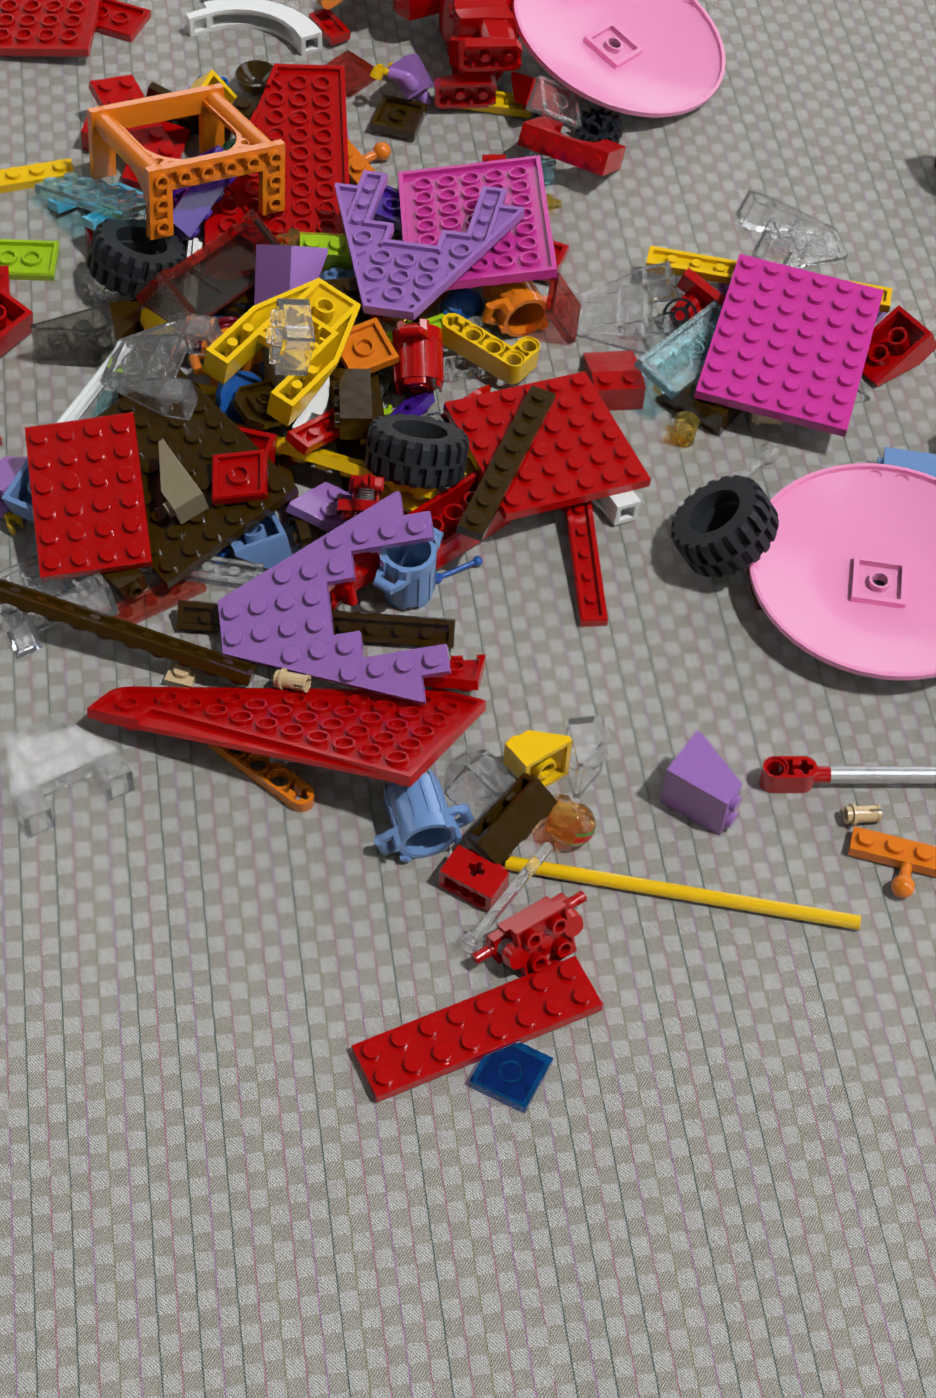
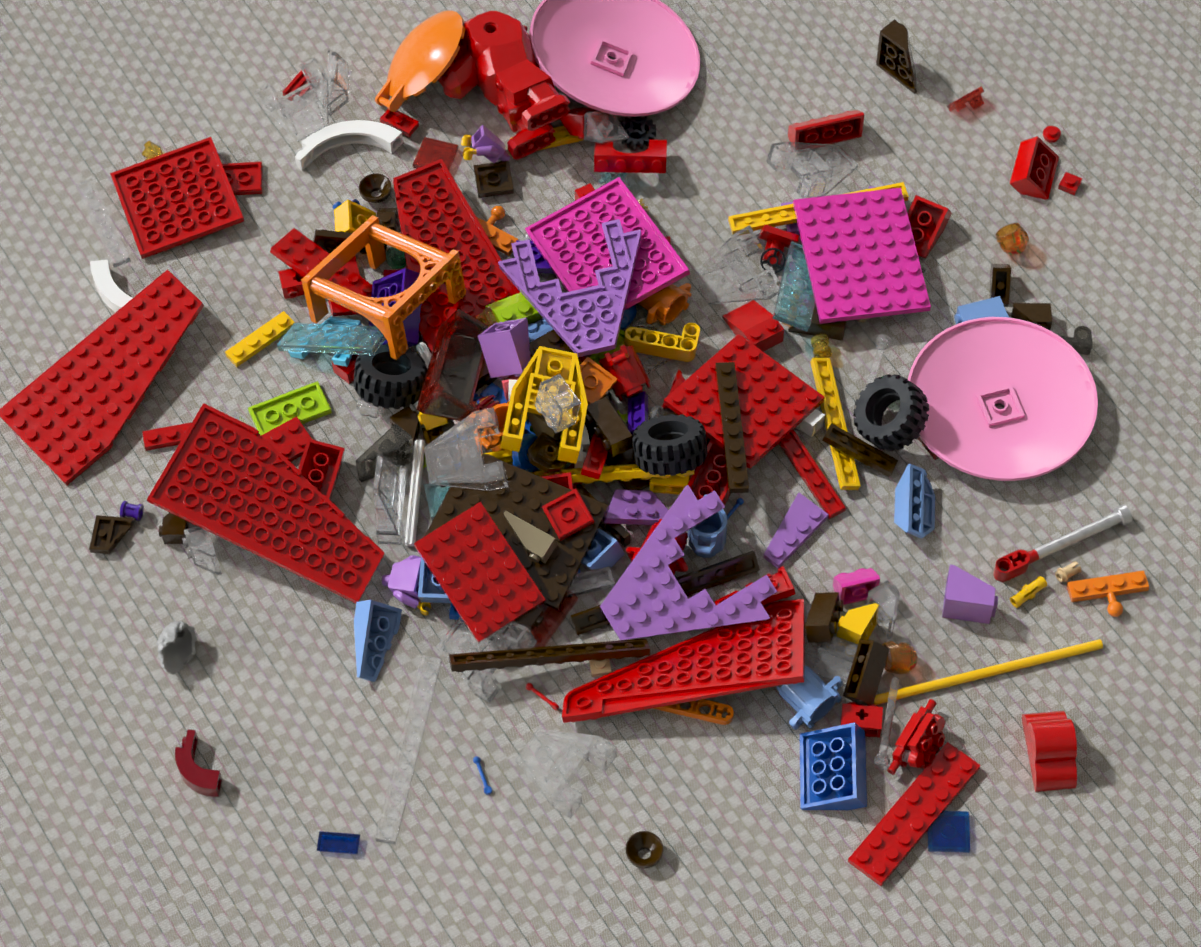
camera: 20 degrees left, 5 degrees up
(42, 372) = (389, 489): none -> clear wedge
(80, 663) = (529, 686): none -> red hinge
(87, 903) = (640, 841): none -> dark brown piece
(290, 680) = (675, 639): tan pin -> none
(363, 487) = (654, 502): red piece -> none
(401, 923) = (833, 768): none -> blue slope
(491, 728) = (823, 617): none -> dark brown brick
(530, 618) = (797, 526): none -> medium lavender wing
(555, 708) = (855, 585): none -> dark pink slope
(563, 309) = (697, 292): clear red tile -> none
(650, 521) = (832, 408): none -> yellow plate
(663, 559) = (860, 450): none -> dark brown plate
(701, 648) = (915, 502): none -> medium blue wedge
(709, 1028) = (1051, 750): none -> red brick
(811, 814) = (1028, 591): none -> yellow pin
(833, 205) = (828, 129): none -> red slope

